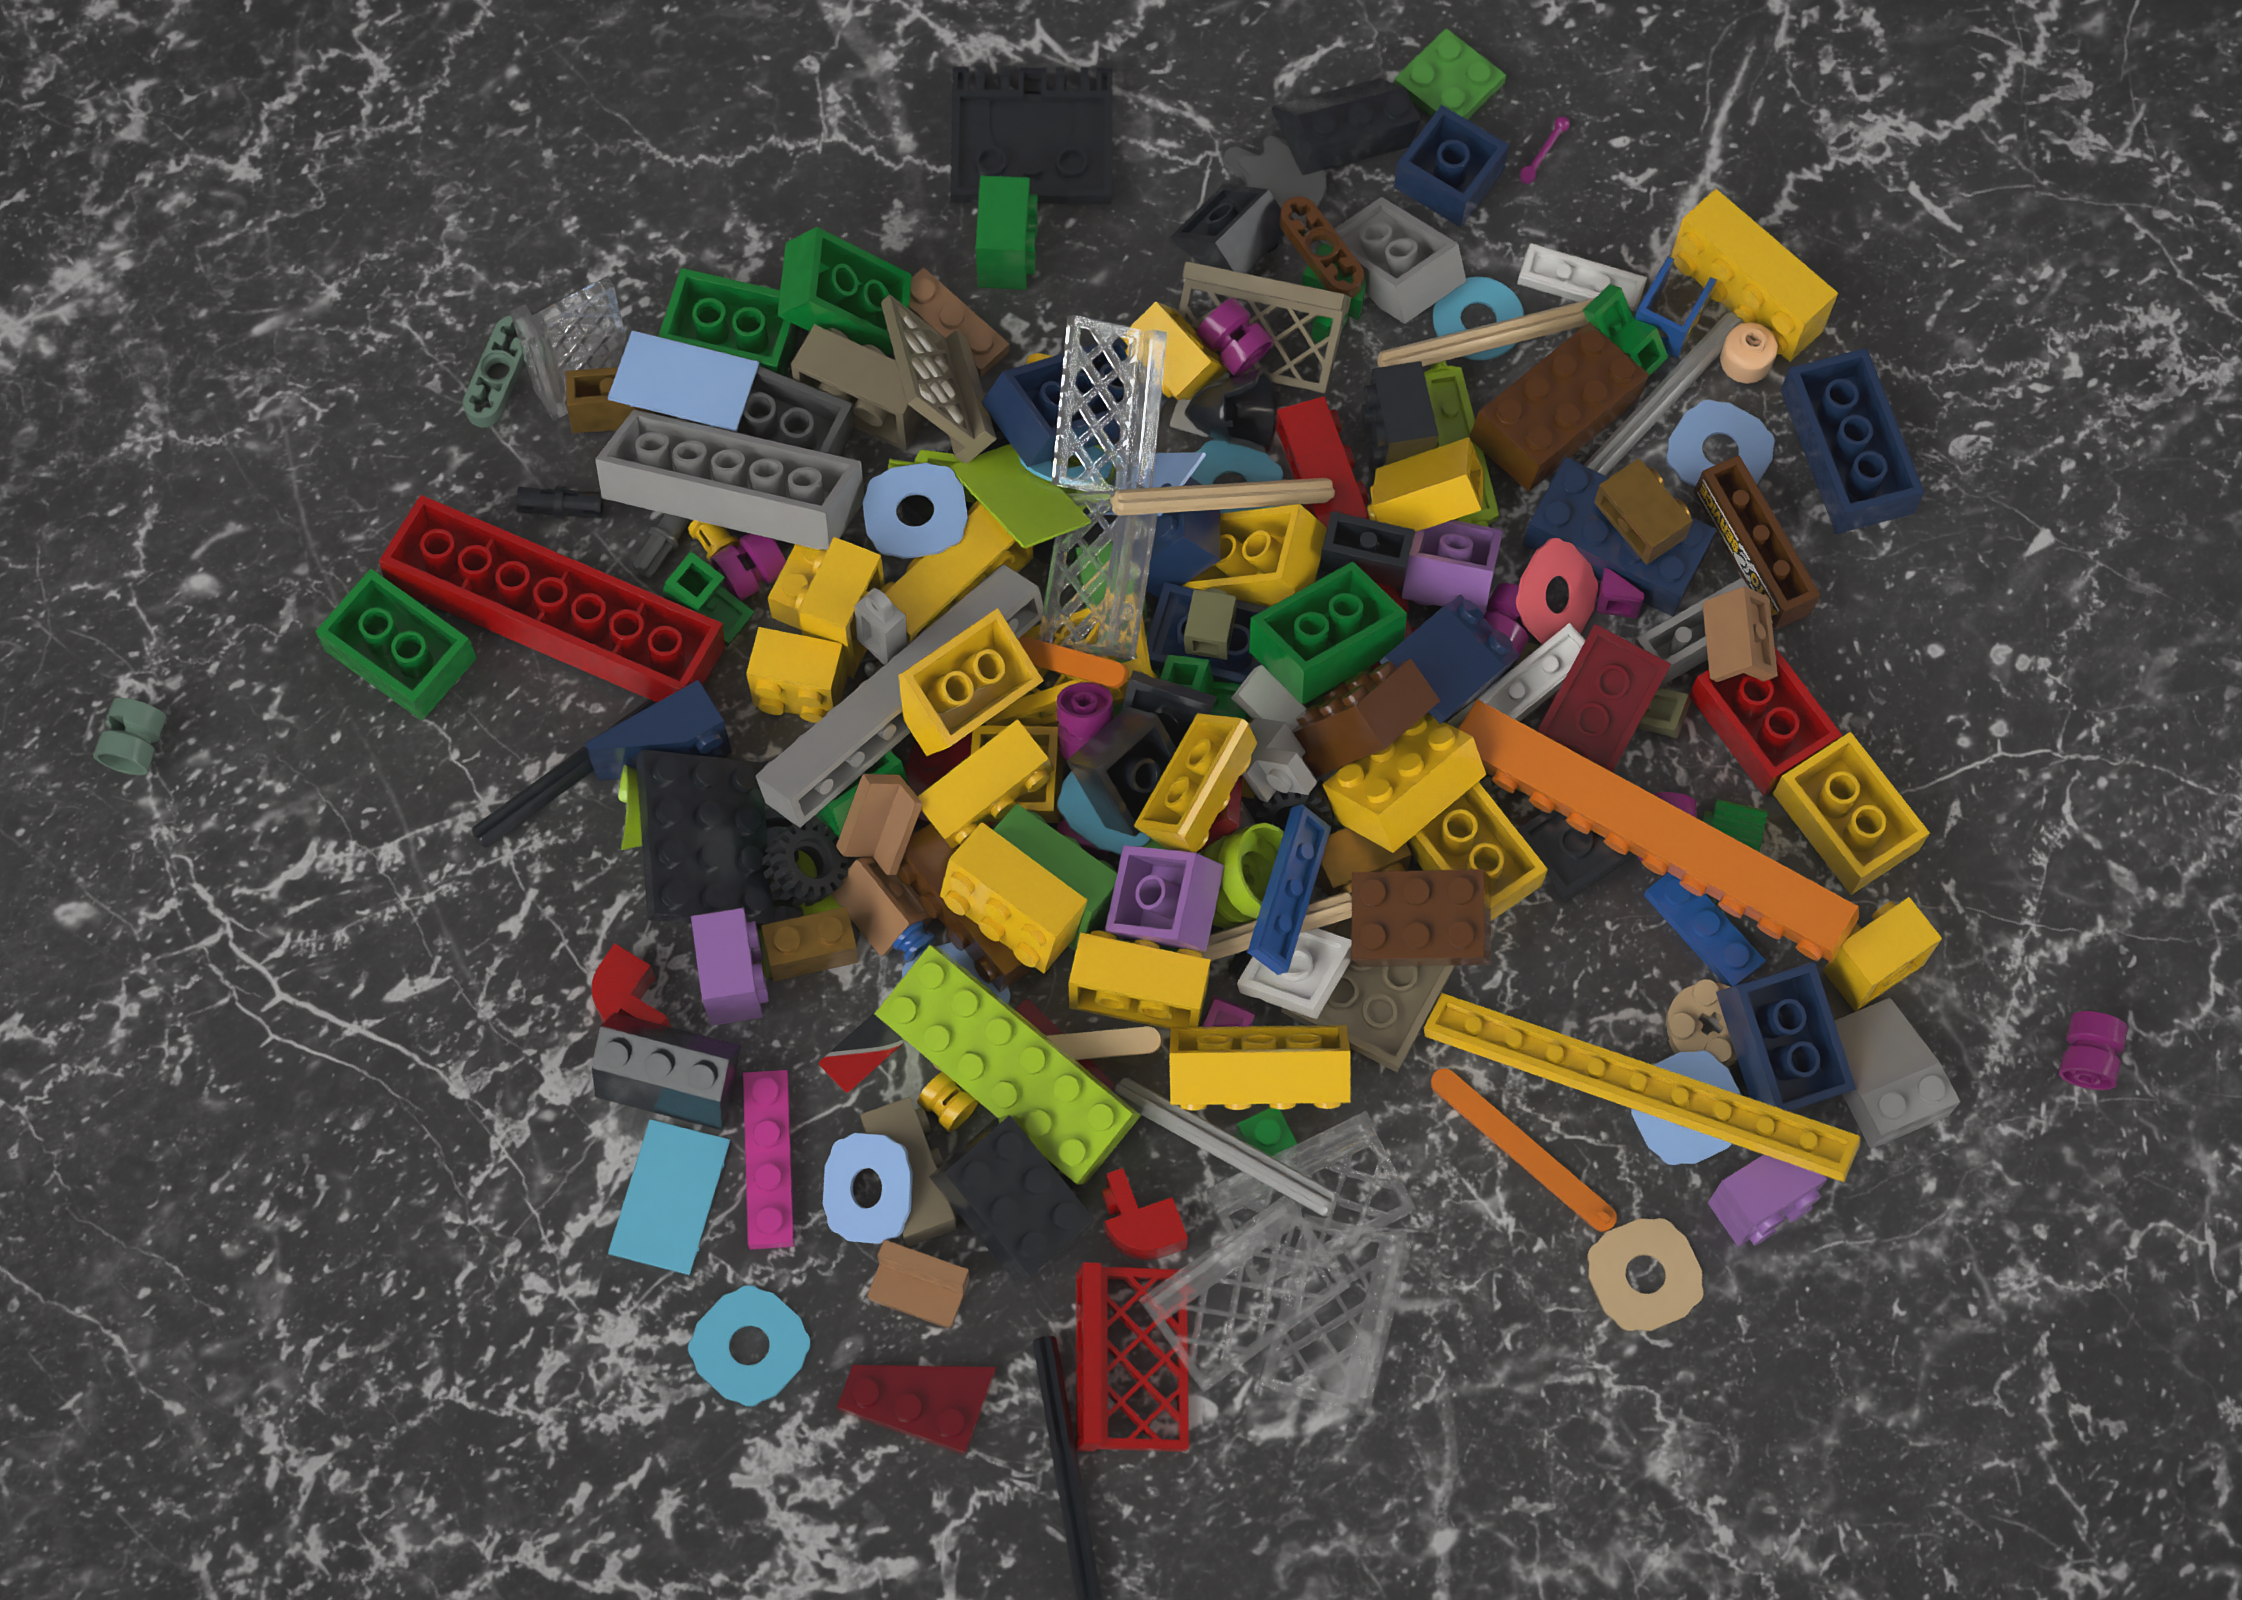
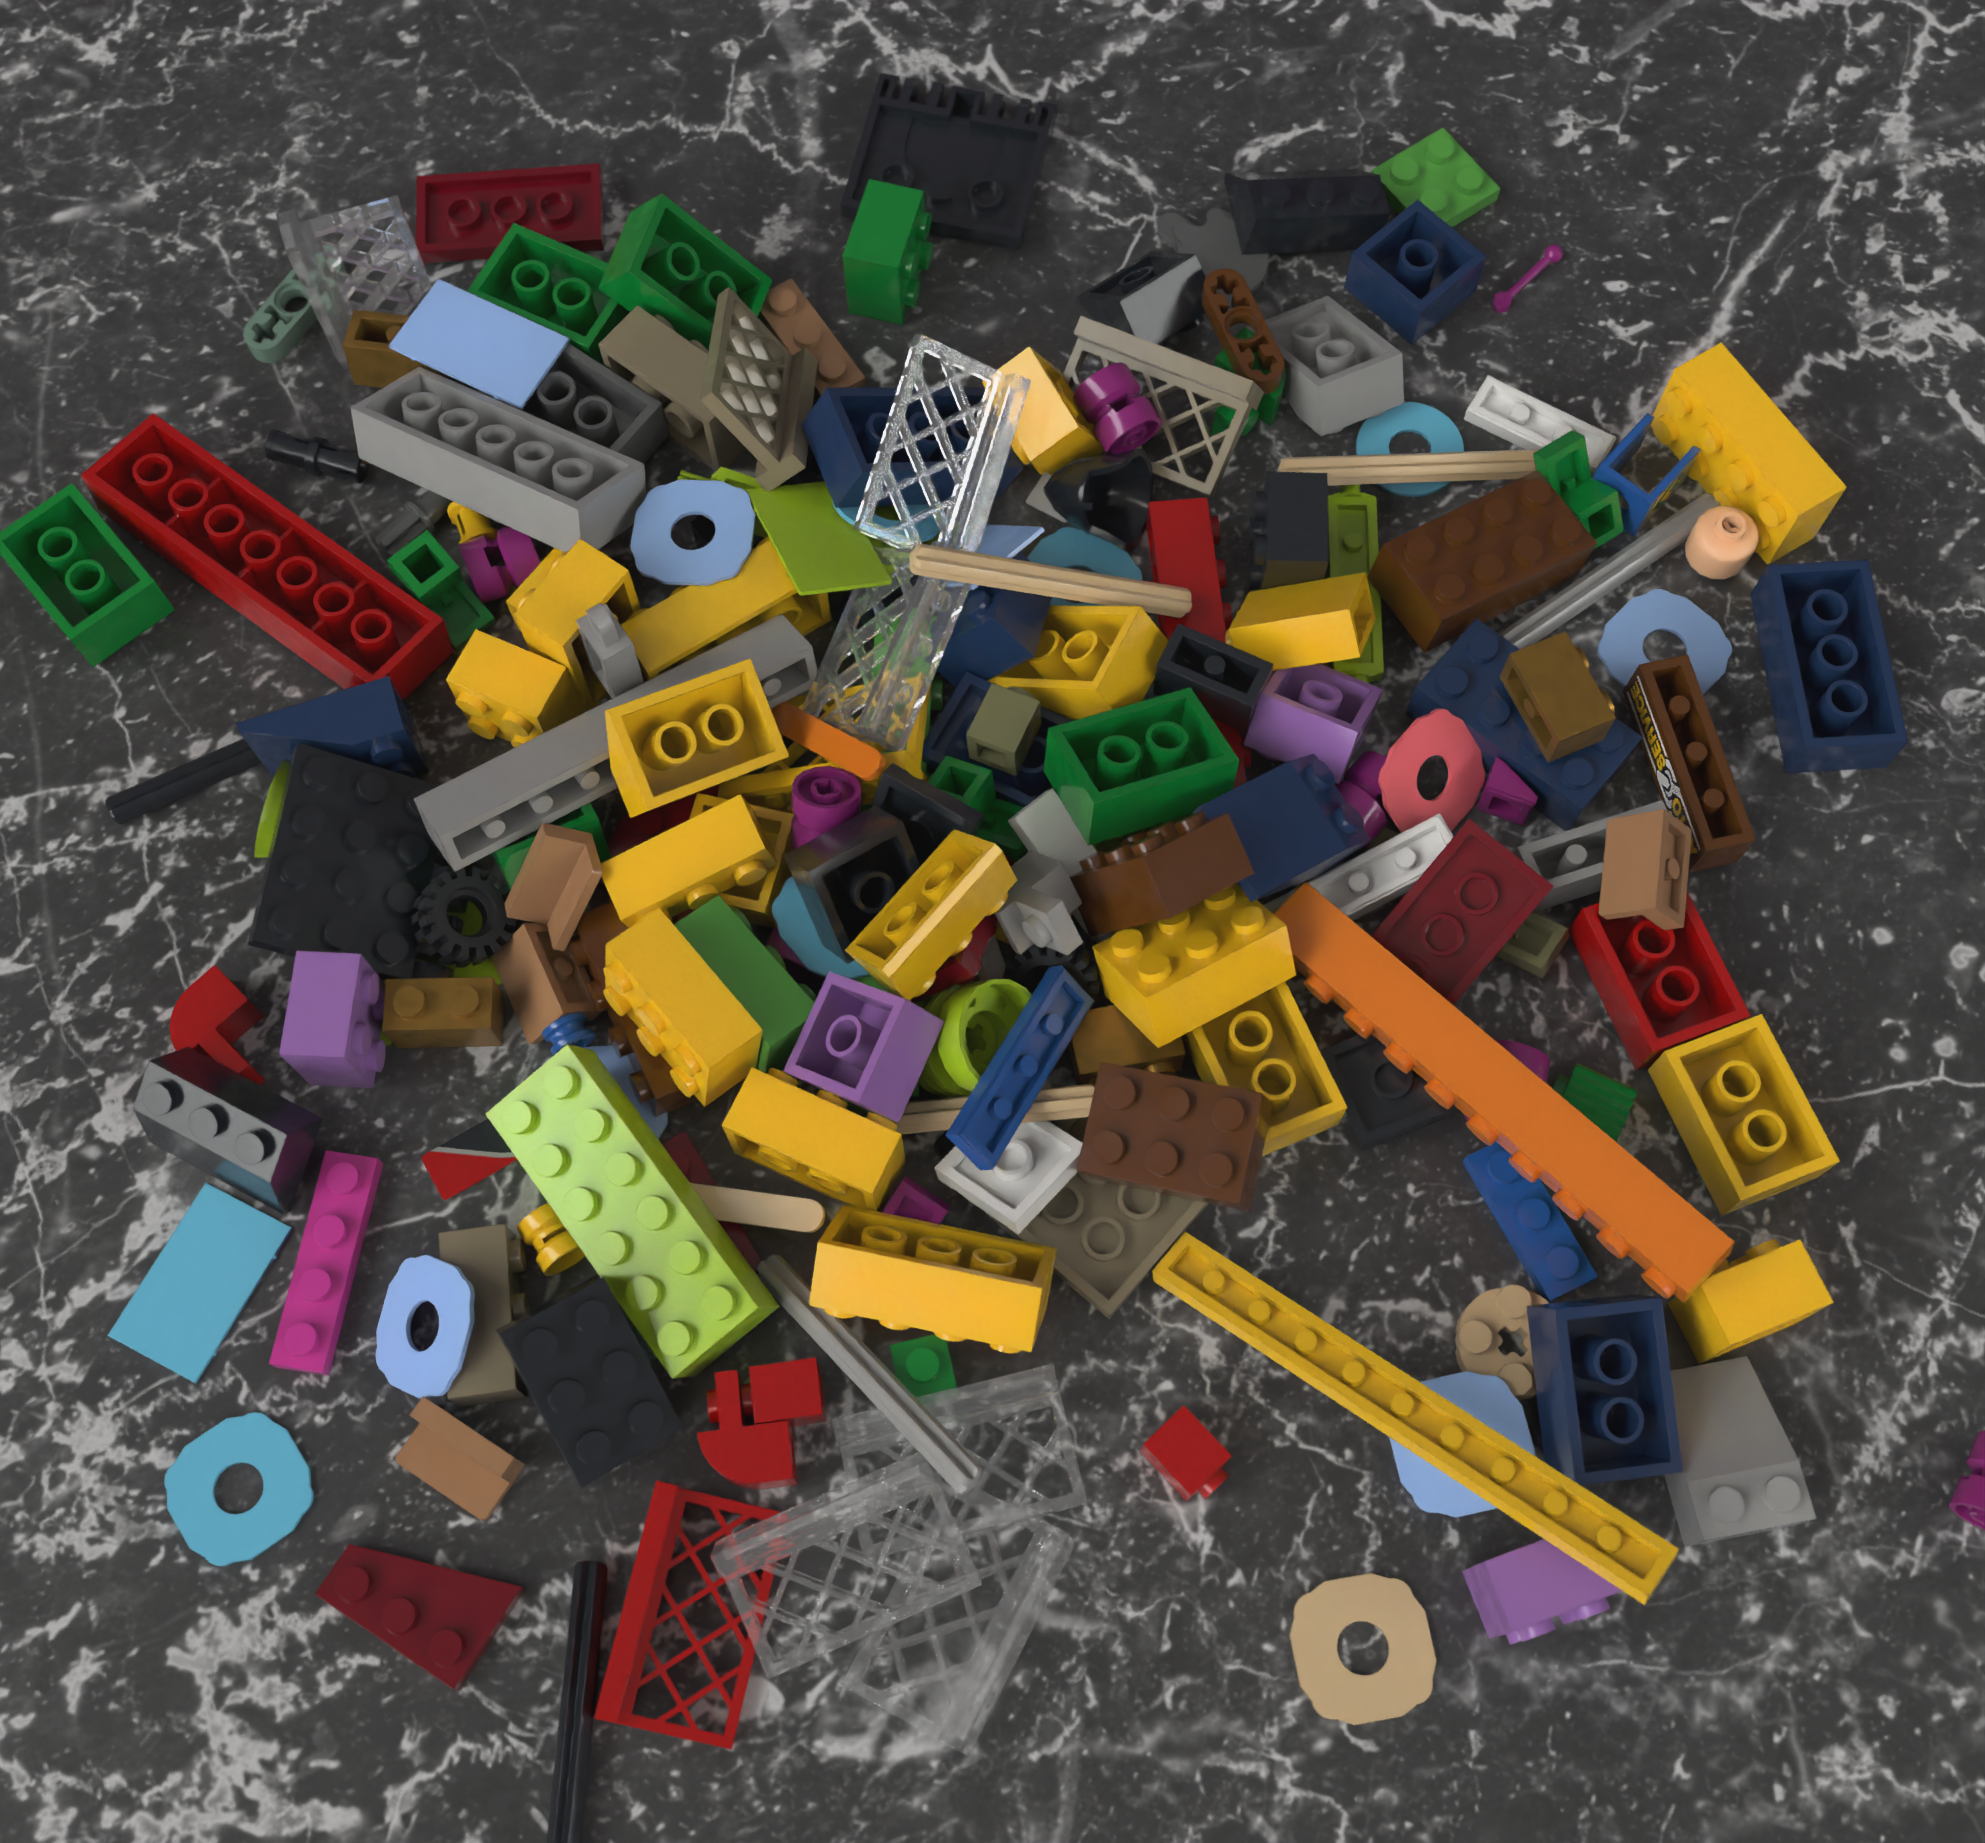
camera: 15 degrees right, 0 degrees up
(649, 252) = (472, 211): none -> dark red plate
(1162, 1178) = (785, 1393): none -> red brick
(1482, 1160) = (1187, 1455): none -> red brick
(1523, 1150) = (1247, 1454): orange piece -> none

